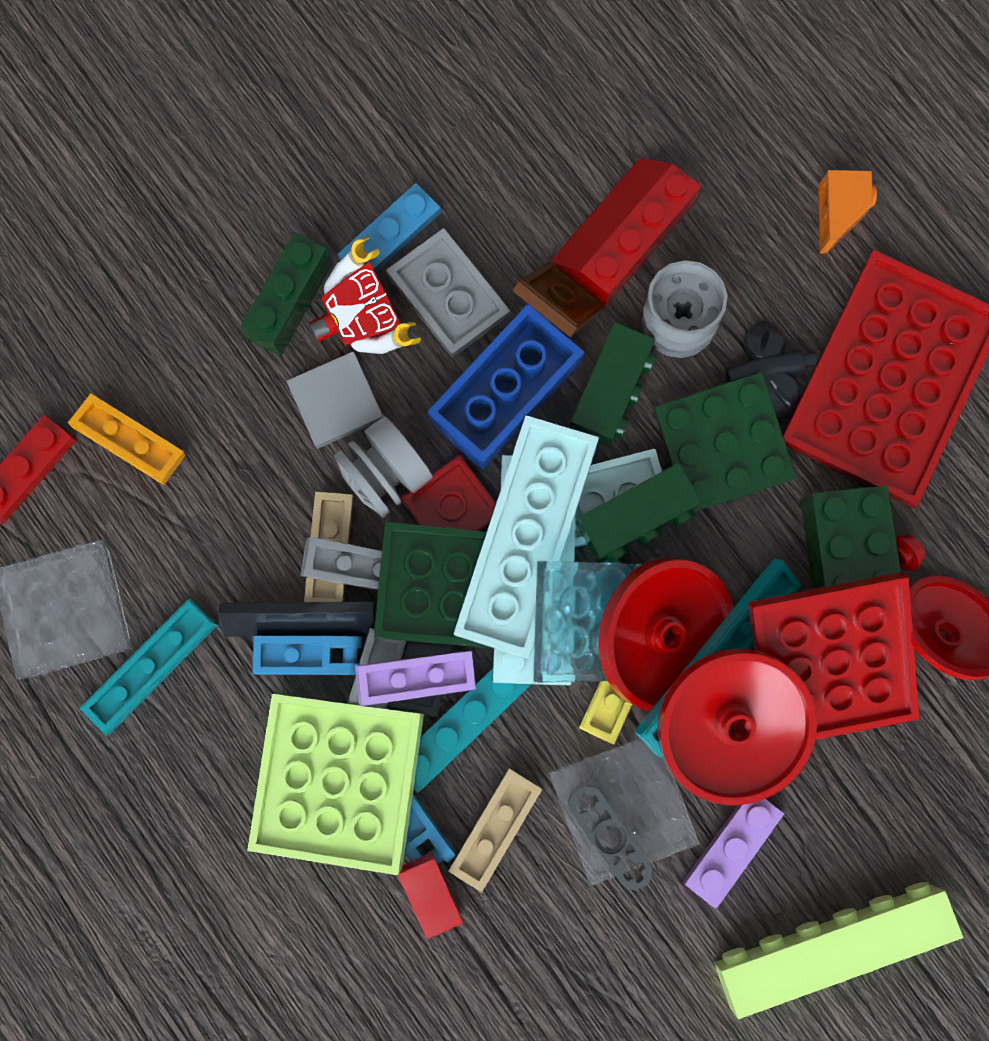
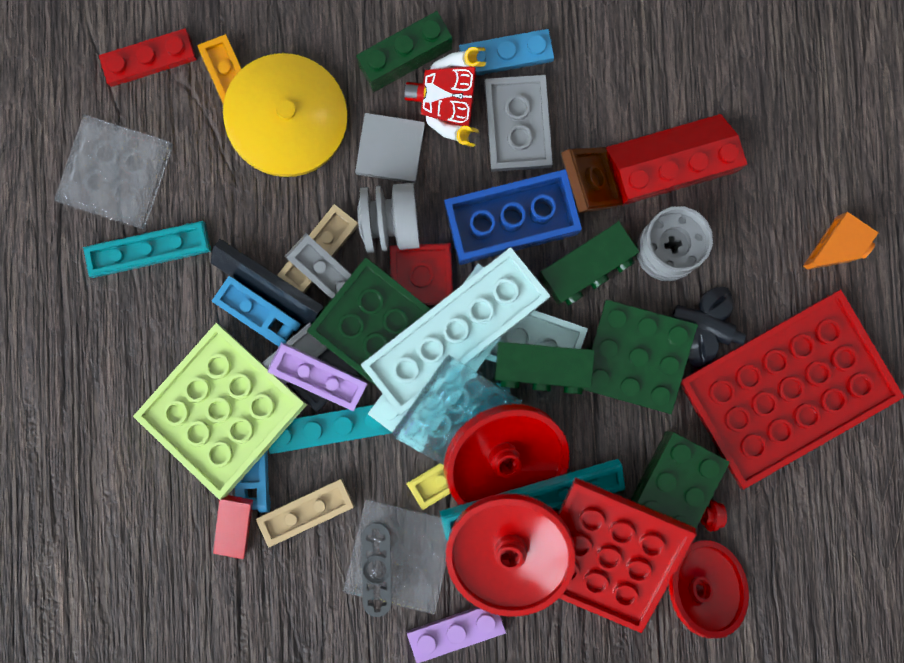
camera: 35 degrees right, 5 degrees up
(205, 435) = (285, 114): none -> yellow dish

